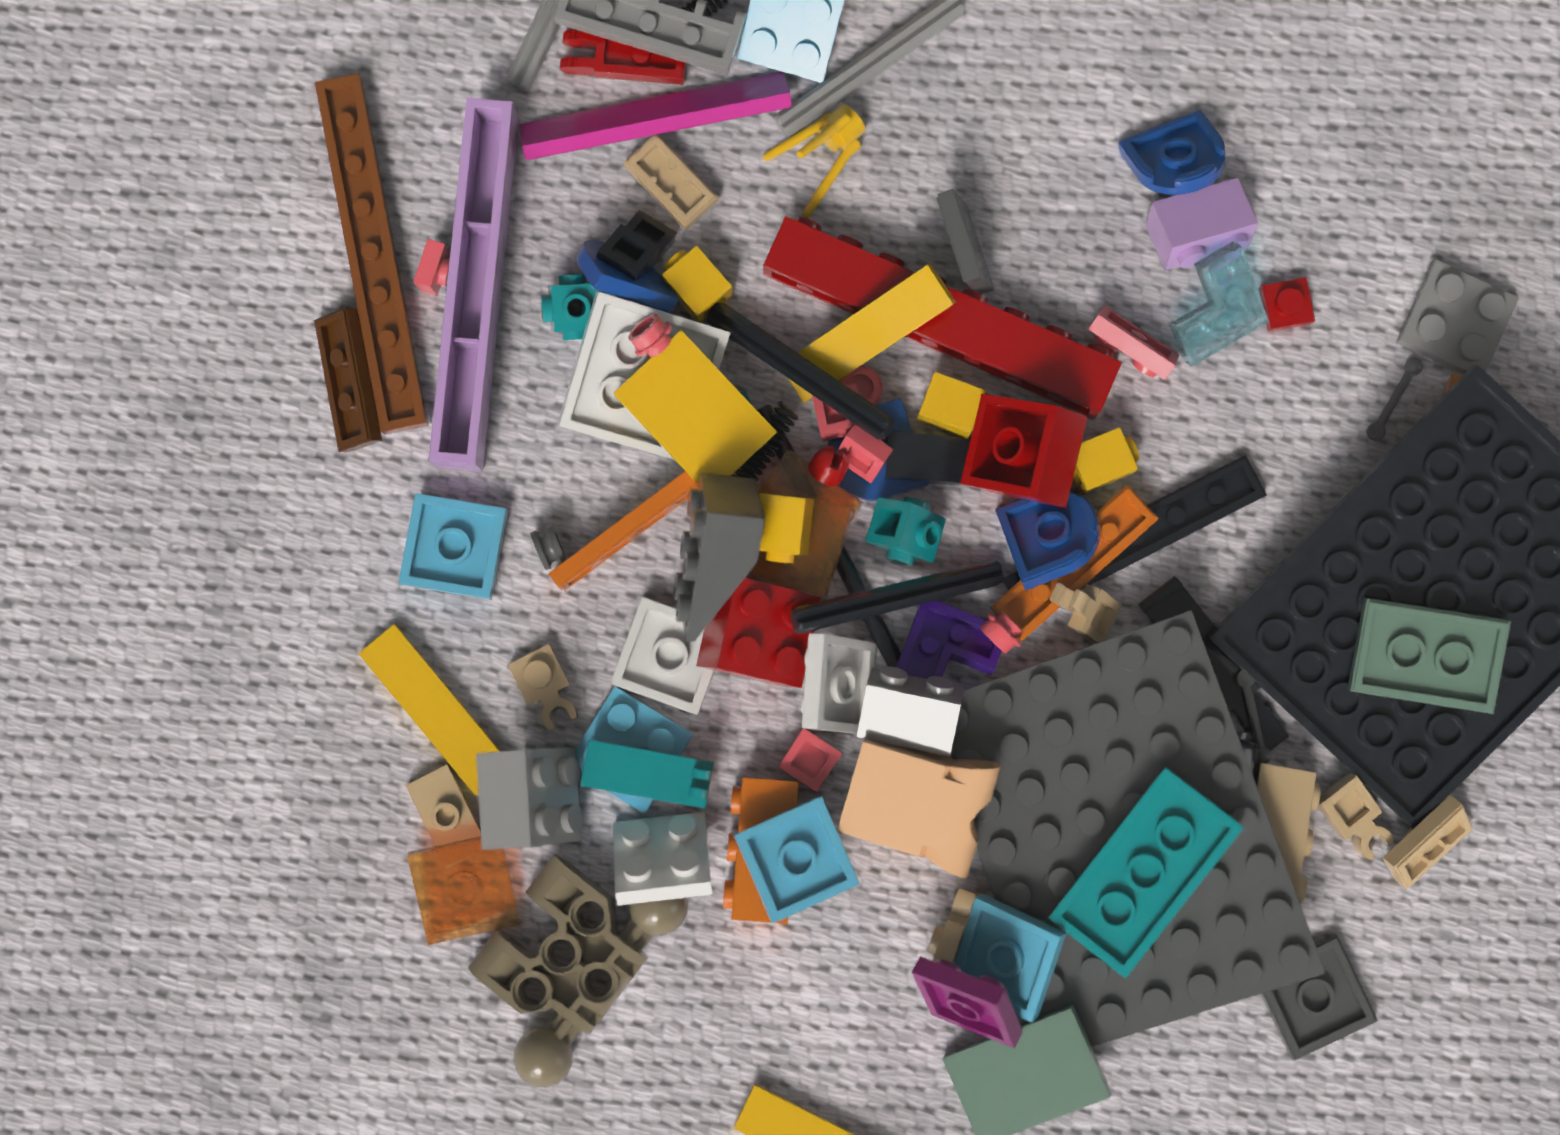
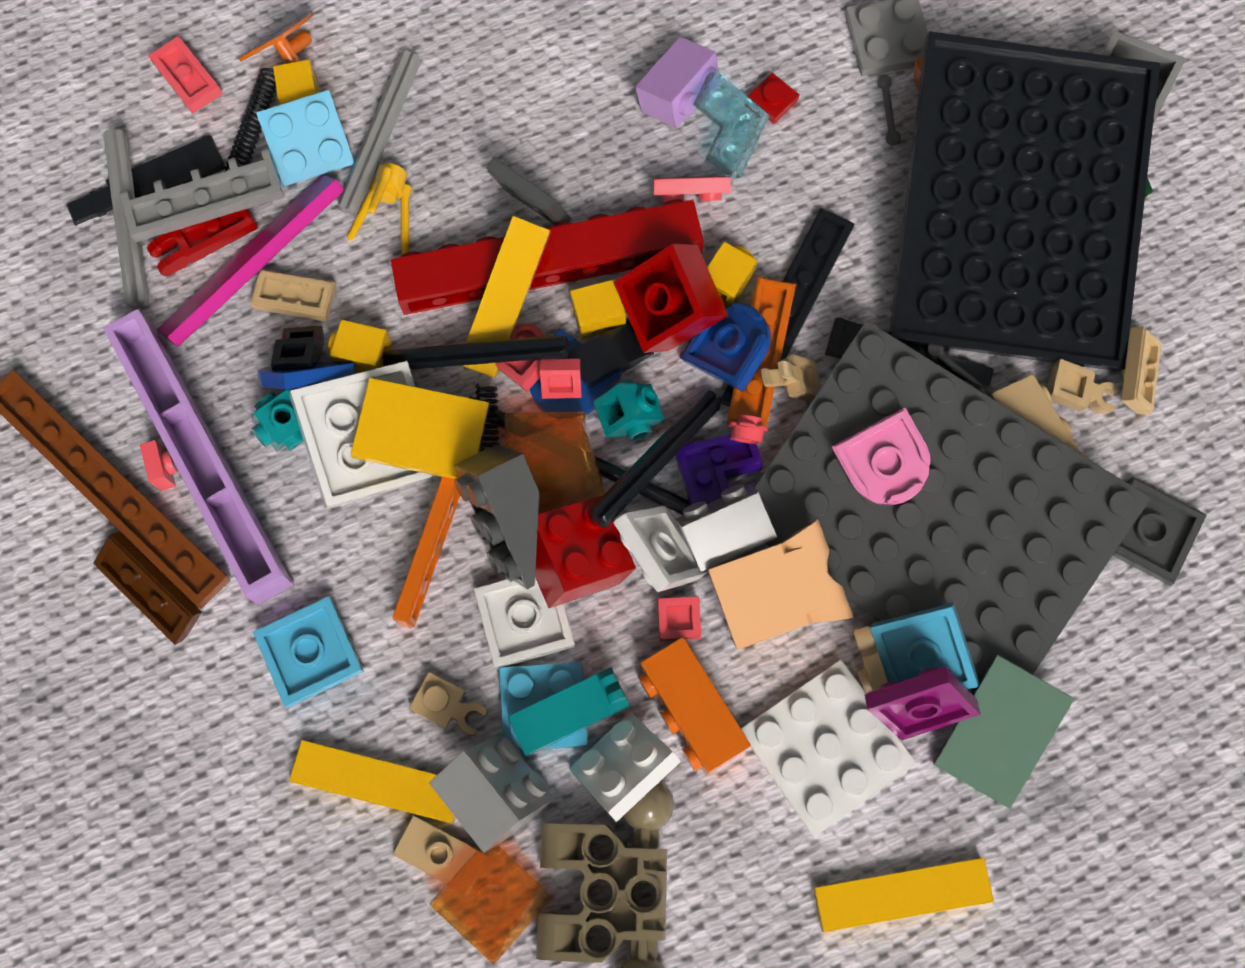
camera: 30 degrees left, 10 degrees down
(548, 546) = (379, 602): dark grey bush -> none
(650, 336) = (350, 396): coral plate -> none
(786, 526) = (543, 459): yellow brick -> none
(796, 859) = (723, 691): medium azure plate -> none
(828, 466) = (542, 403): red hinge -> none
(855, 975) = (826, 748): none -> white plate
(1106, 757) = (886, 460): none -> bright pink tile
(1146, 872) = (975, 518): teal plate -> none
(1176, 155) = (628, 52): blue tile -> none
(1429, 655) = (1044, 242): sand green tile -> none

